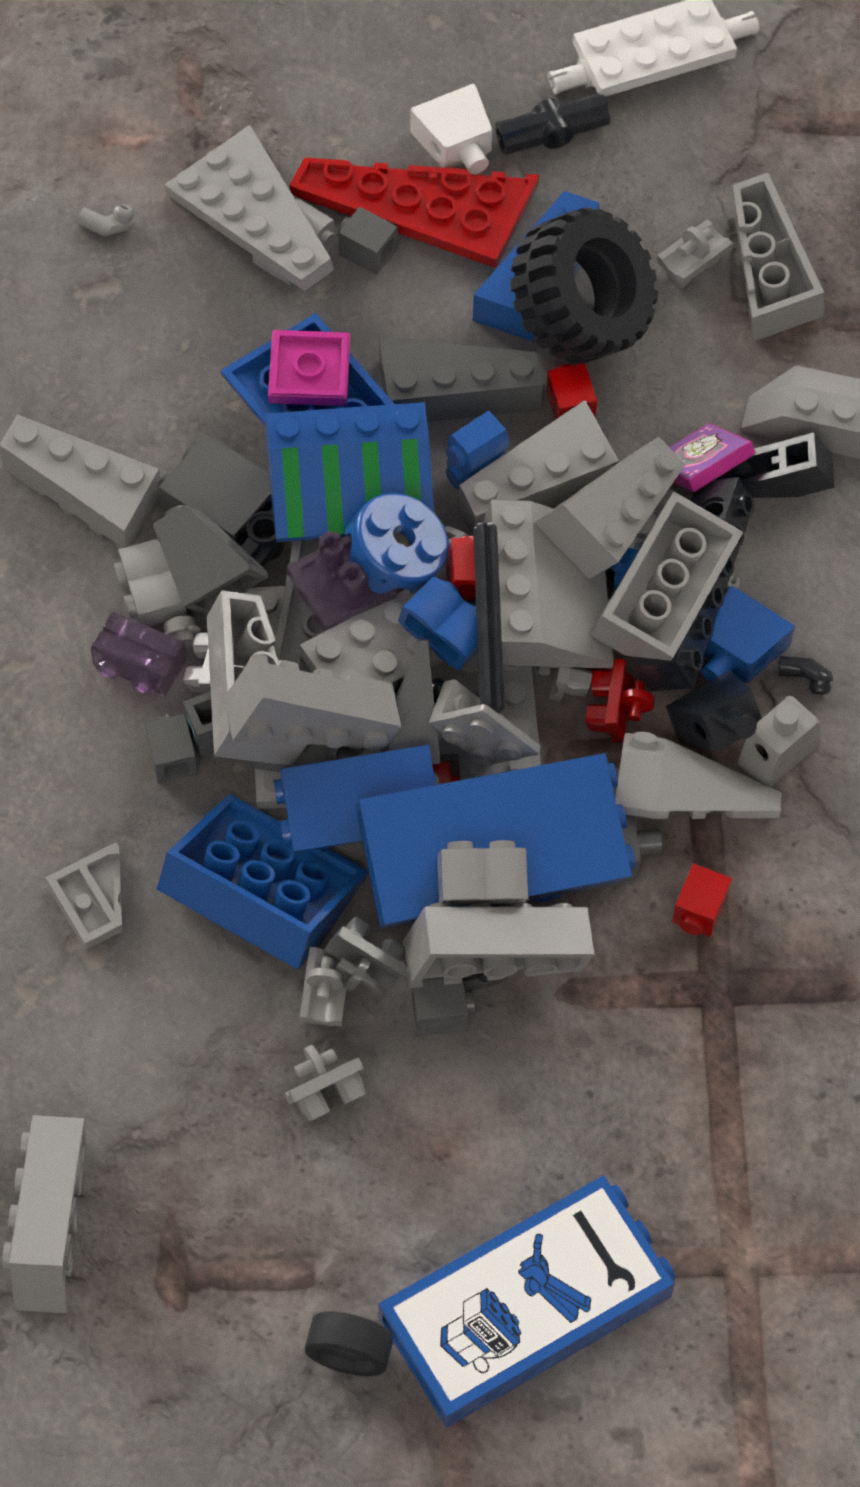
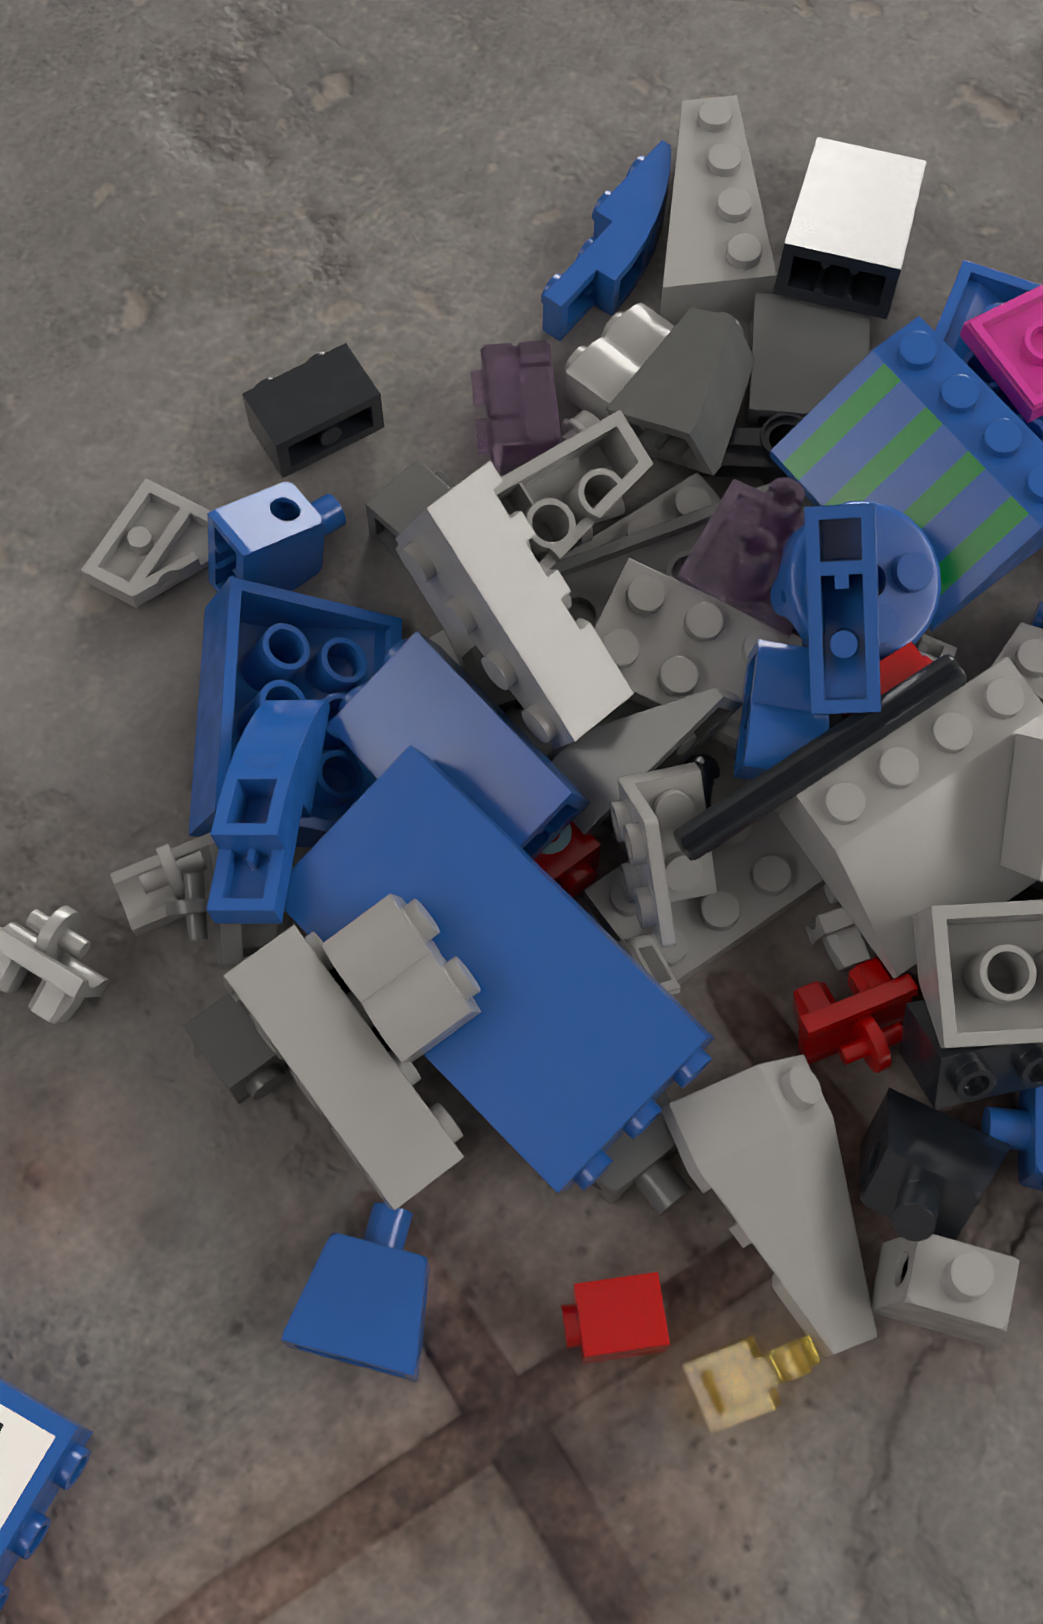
camera: 60 degrees right, 5 degrees up
(59, 533) = (620, 250): none -> blue slope
(64, 762) = (314, 409): none -> black brick
(143, 821) = (271, 537): none -> blue torso
(150, 411) = (850, 228): none -> brick
(334, 896) = (261, 810): none -> blue slope
(422, 550) = (843, 608): none -> blue slope
(619, 1013) = (366, 1299): none -> blue torso
(765, 863) = (740, 1382): none -> clear yellow plate

